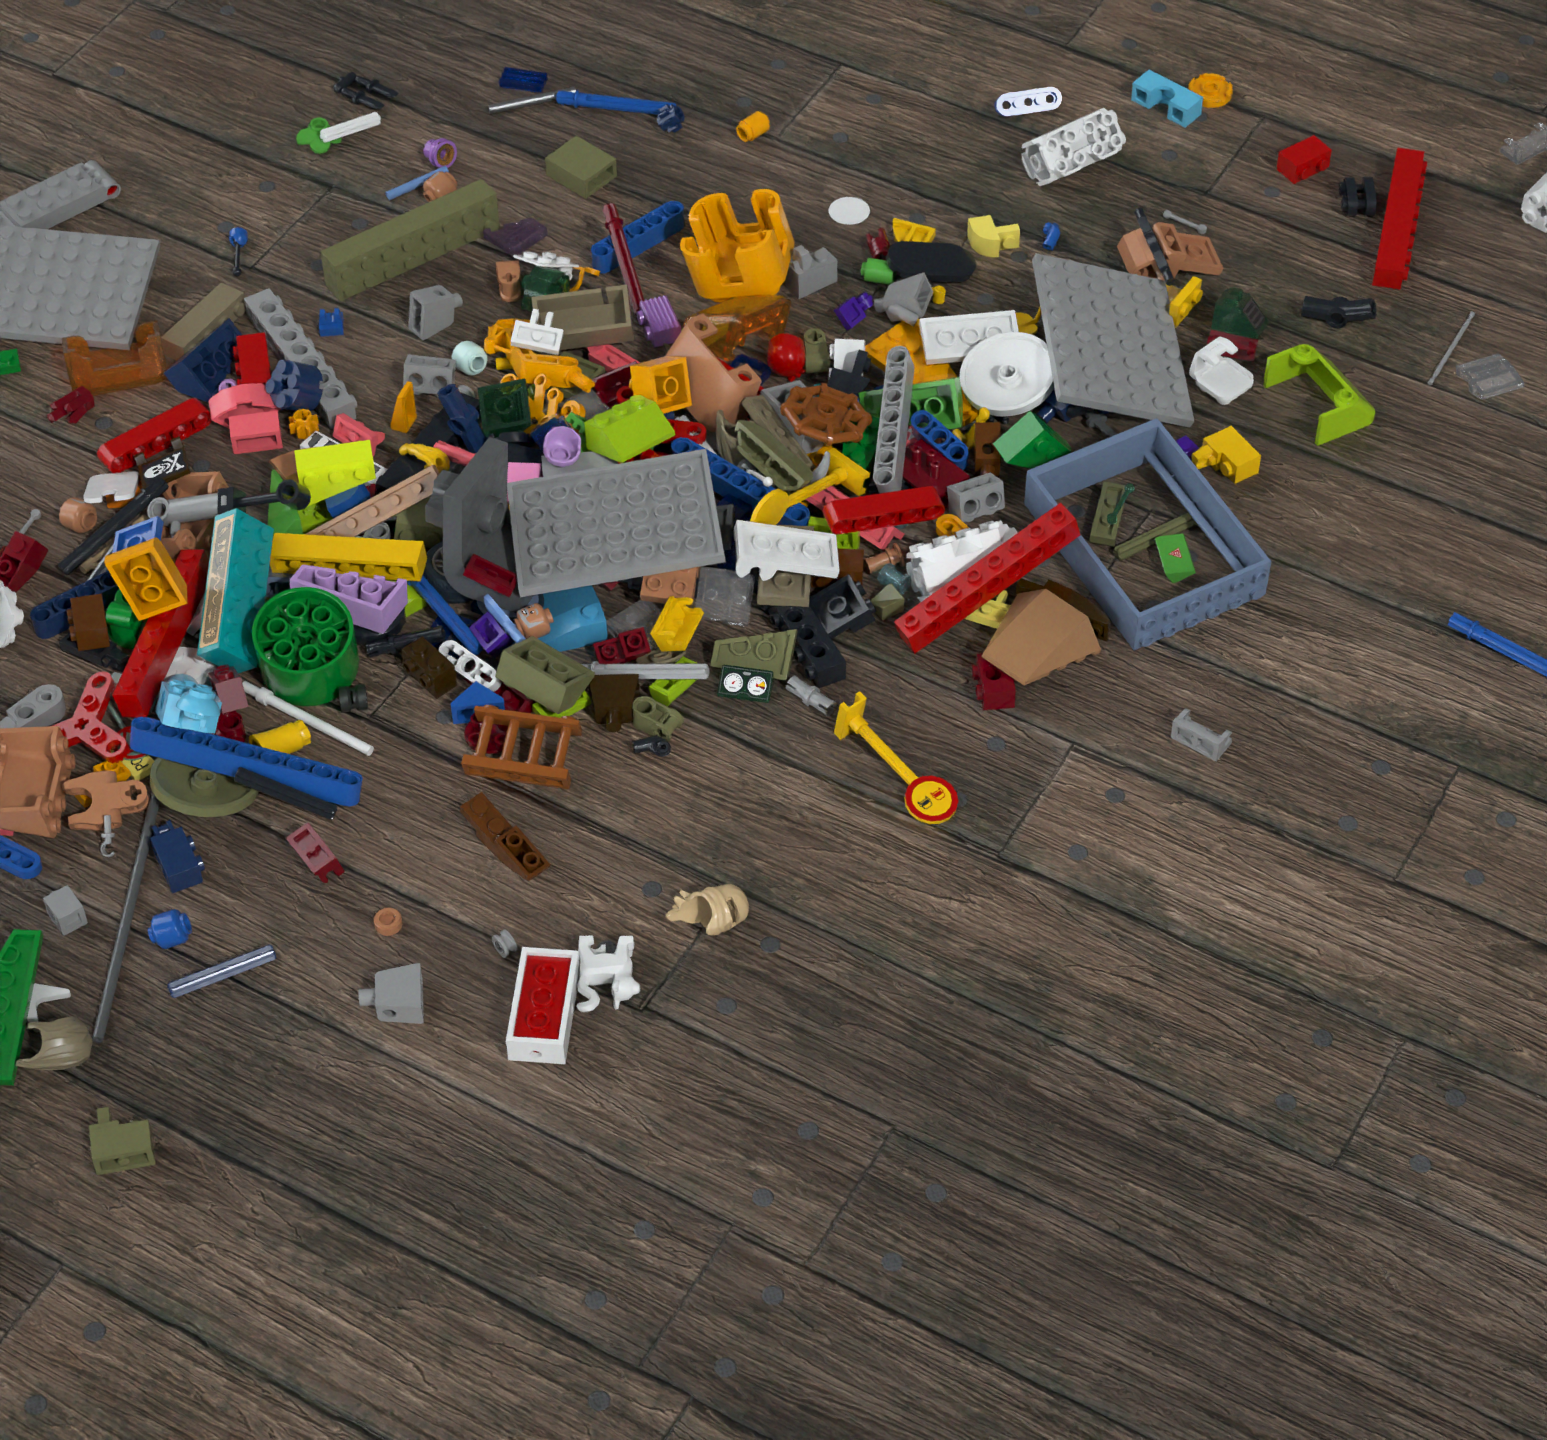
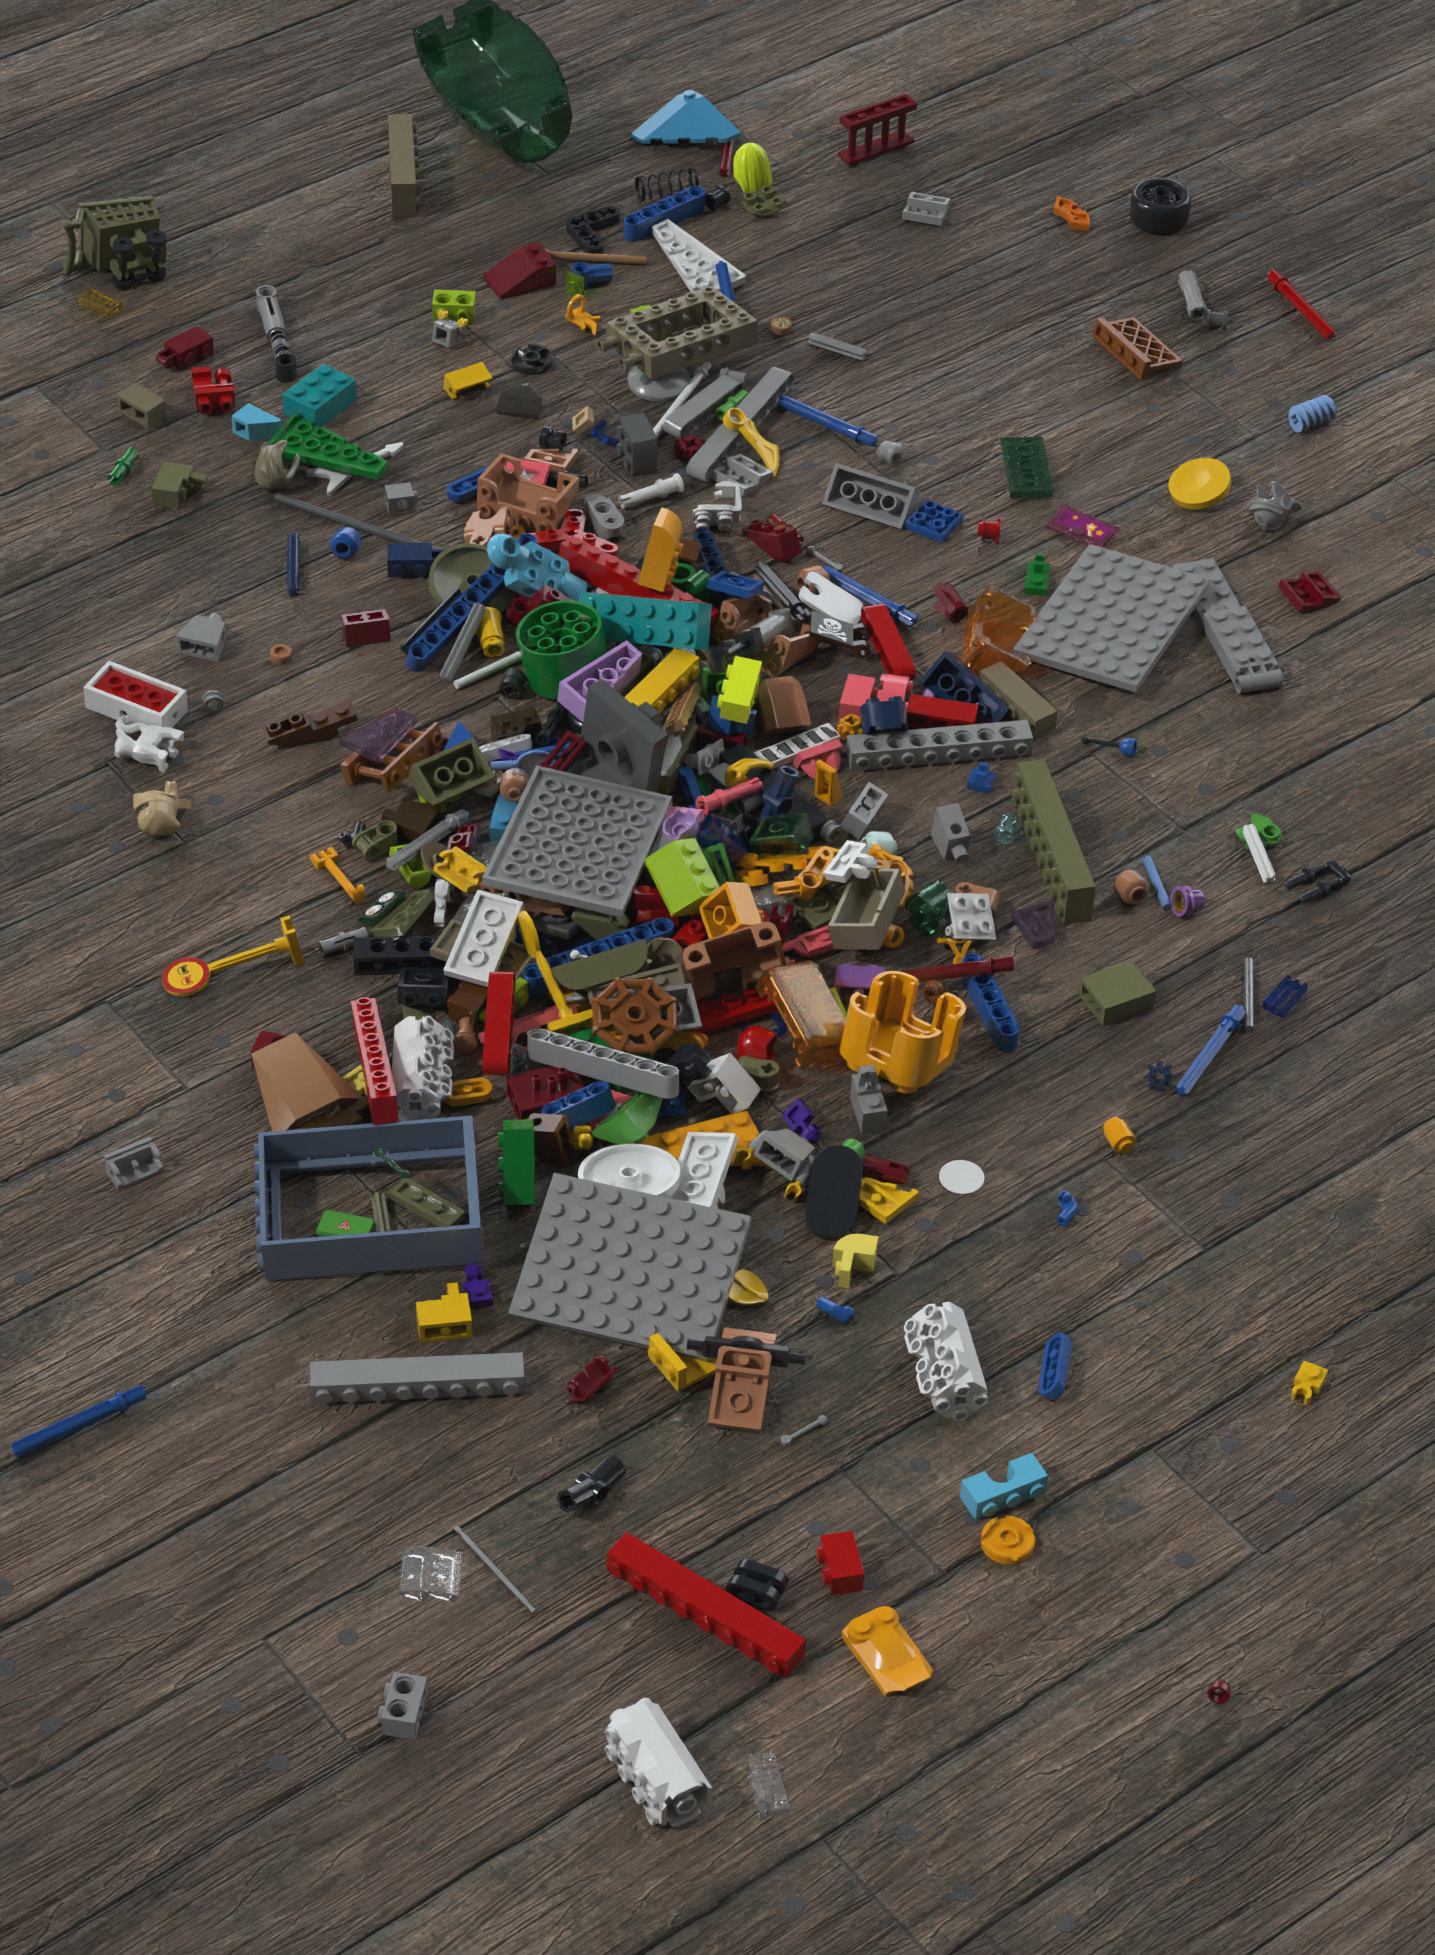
camera: 110 degrees right, 5 degrees down
(79, 472) = (897, 611): none -> blue axle
(98, 1217) = (123, 466): none -> green pin
(107, 835) = (456, 530): light grey hand -> none
(313, 751) = (462, 642): none -> light grey axle
(397, 285) = (1006, 828): none -> clear light blue bush
(511, 753) = (380, 735): none -> clear purple wing
(643, 274) = (929, 993): none -> dark orange bush
(701, 756) = (329, 862): none -> light orange hinge
(716, 629) = (442, 895): none -> white piece
(850, 138) = (1068, 1206): none -> blue arm
(976, 497) = (494, 1107): light grey brick -> none
(1218, 375) = (555, 1352): white piece -> none
(1238, 314) = (620, 1393): clear green slope -> none
(1308, 450) = (416, 1377): none -> light grey brick
(1352, 408) = (486, 1433): lime windscreen -> none
(1363, 118) = (886, 1651): none -> light orange slope

